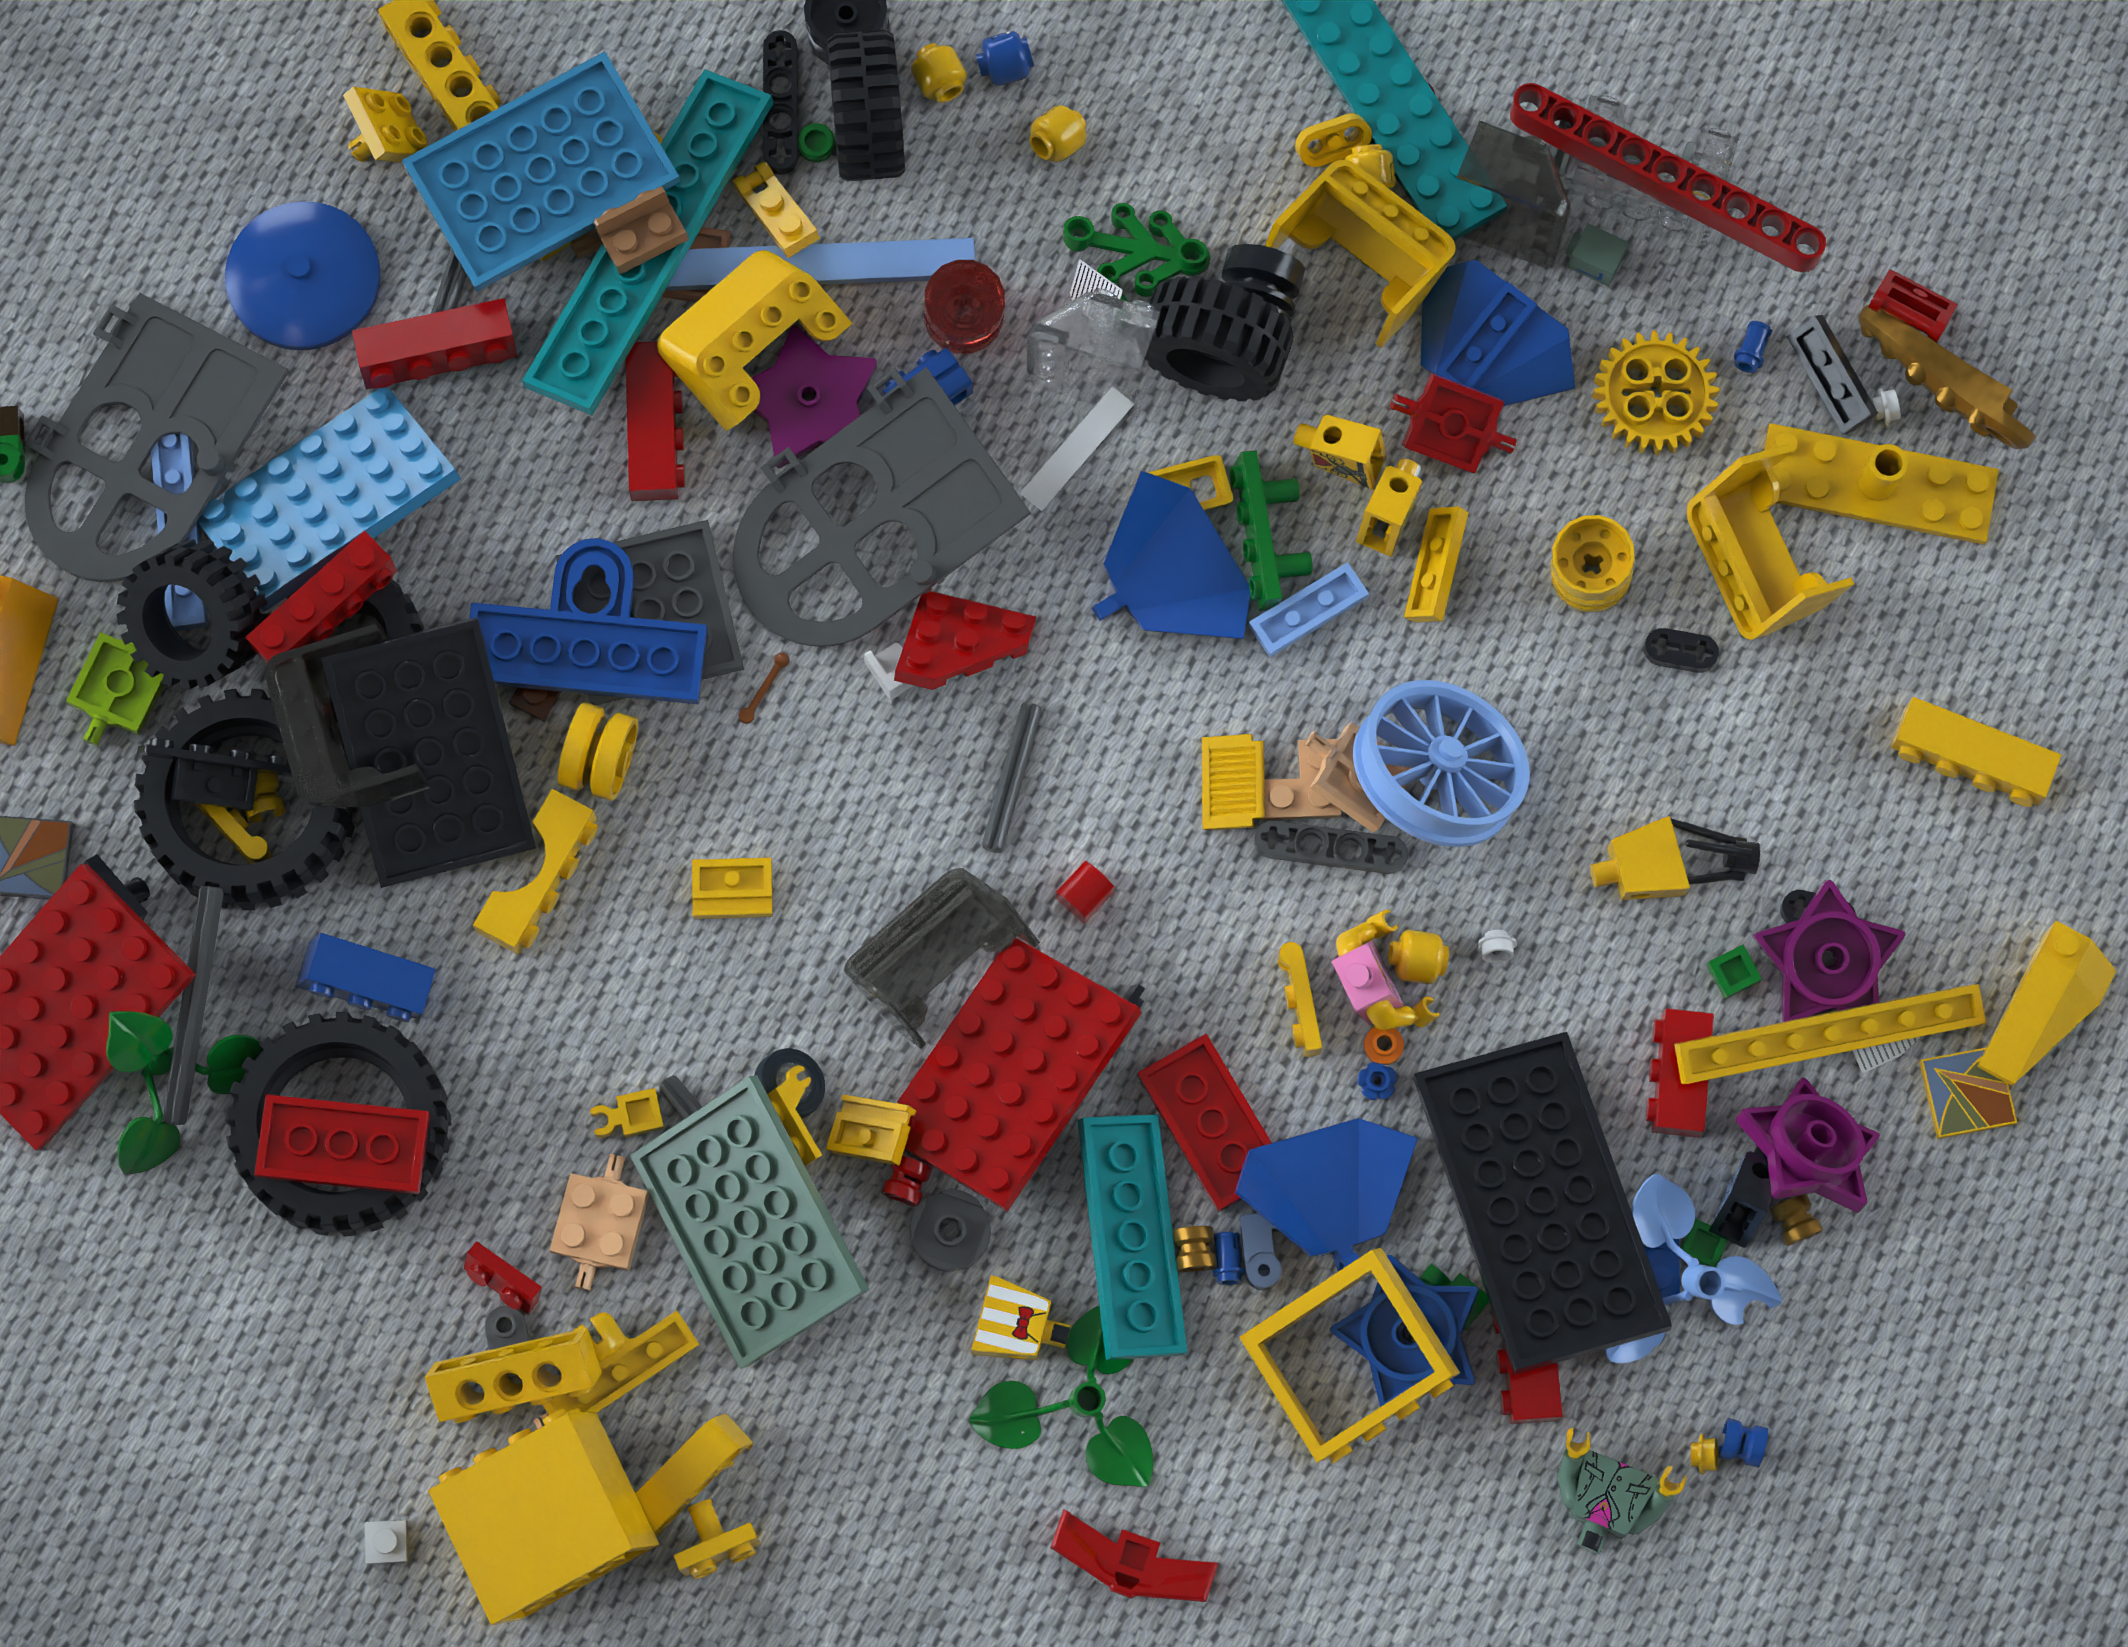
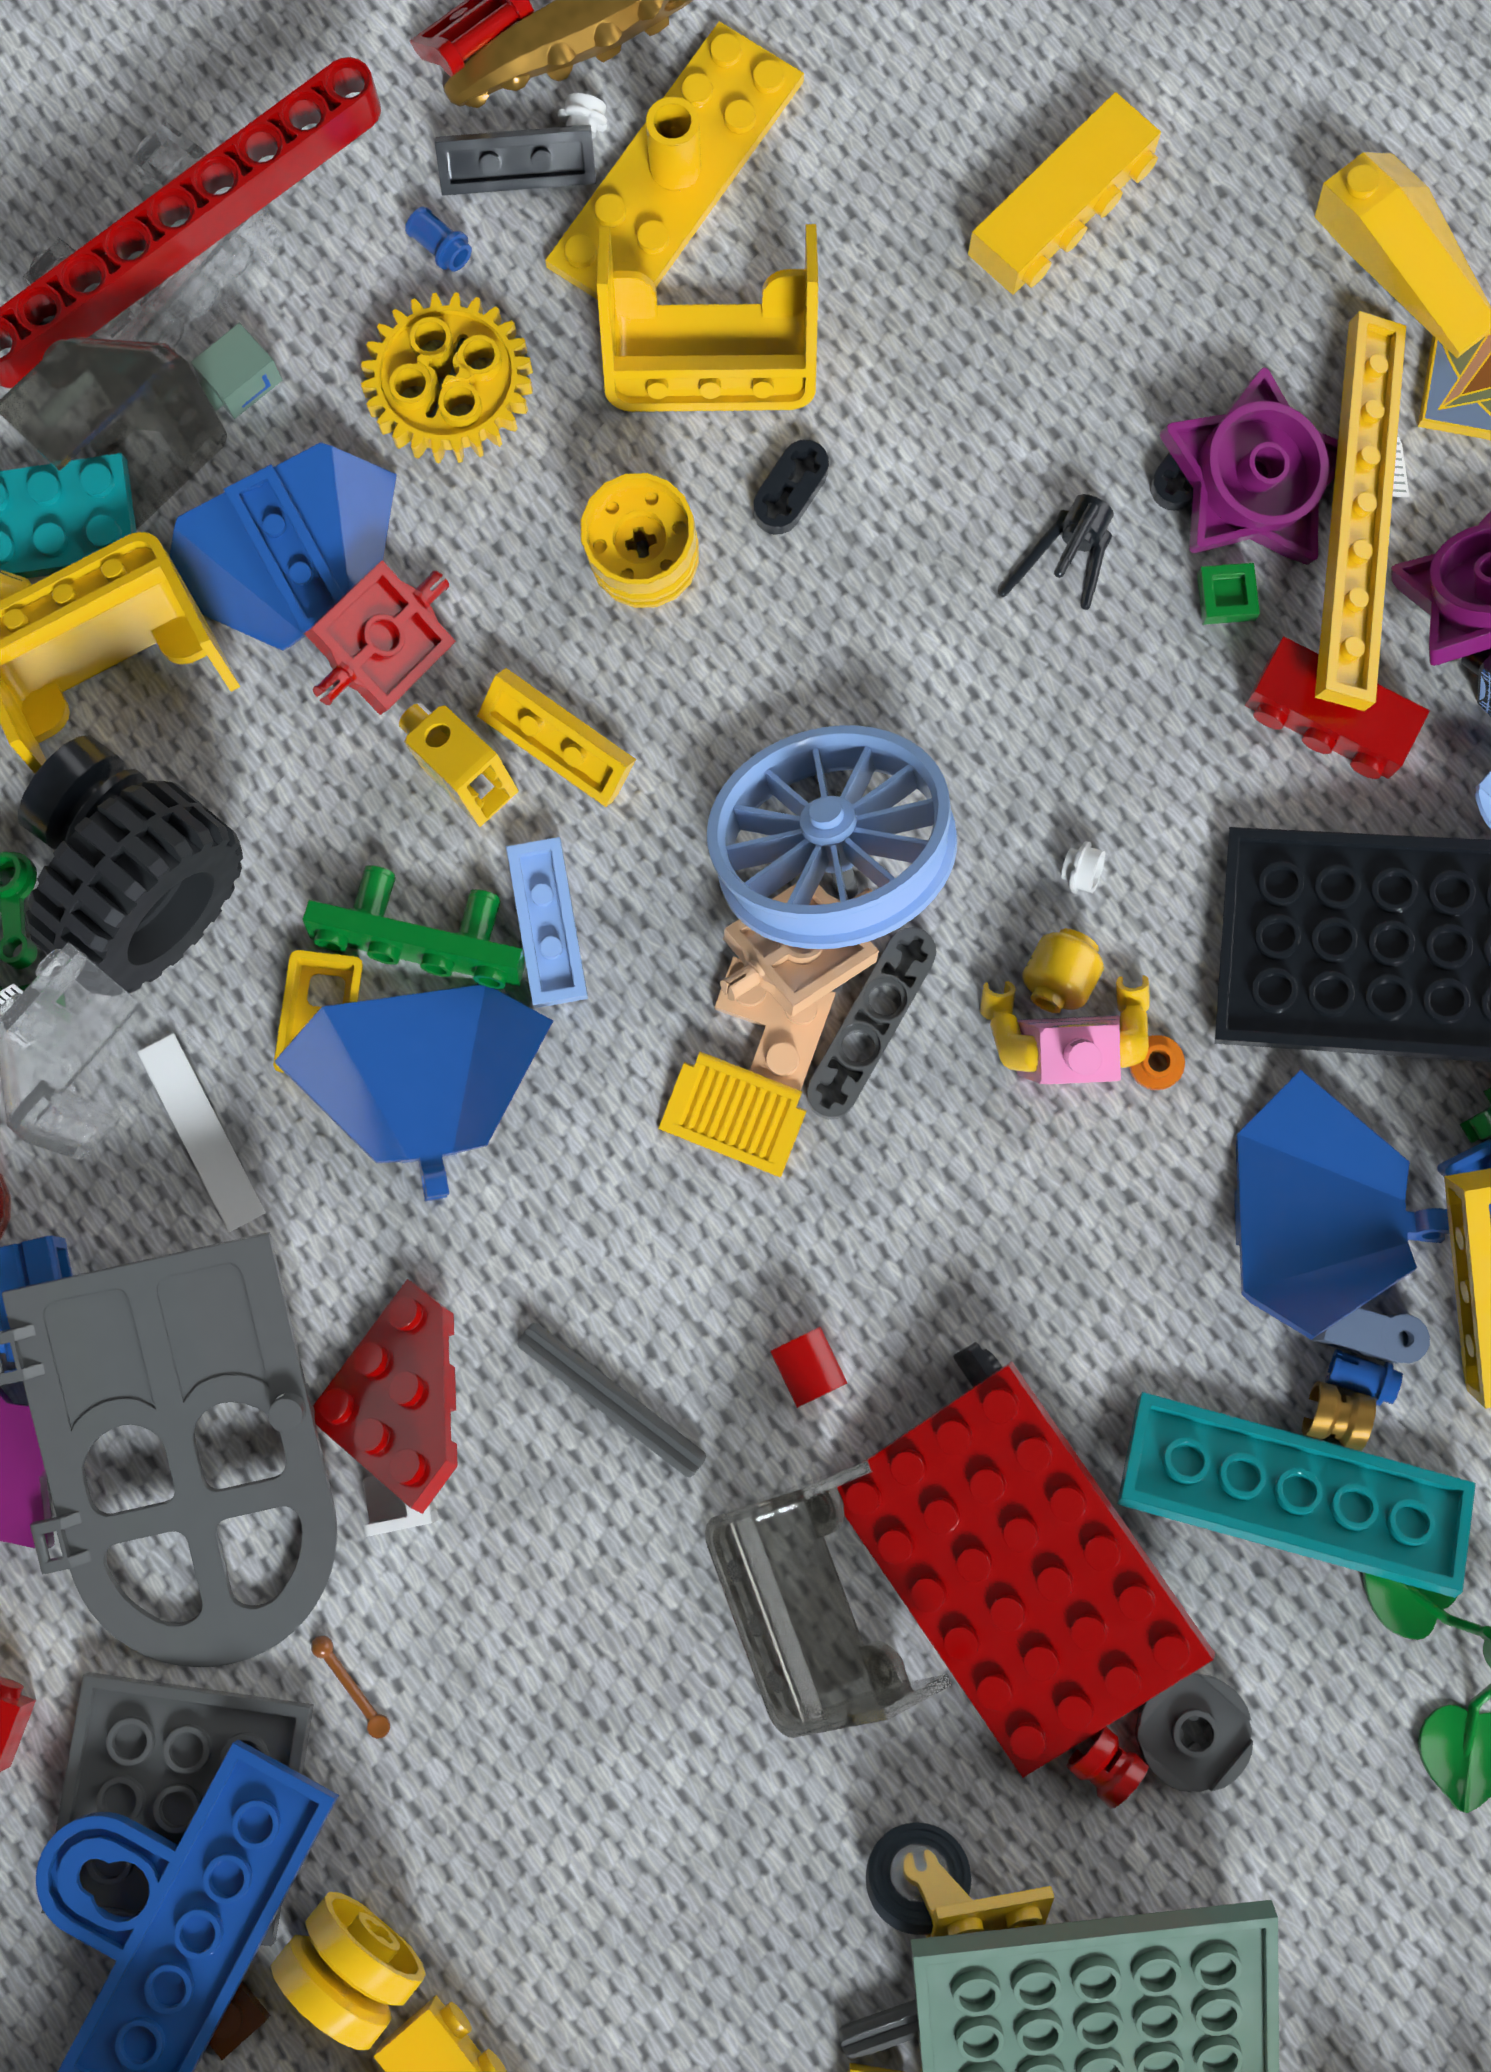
camera: 65 degrees left, 5 degrees up
(732, 888) = (612, 1845): yellow plate -> none
(870, 1130) = (1024, 1790): yellow plate -> none
(1015, 1323) = (1355, 1695): torso -> none
(1205, 1116) = (1168, 1329): red plate -> none
(1299, 997) = (1057, 1143): yellow plate -> none
(1356, 450) = (372, 782): yellow torso -> none
(1374, 1091) = (1190, 1100): blue plate -> none
(1644, 863) = (1049, 642): yellow torso -> none

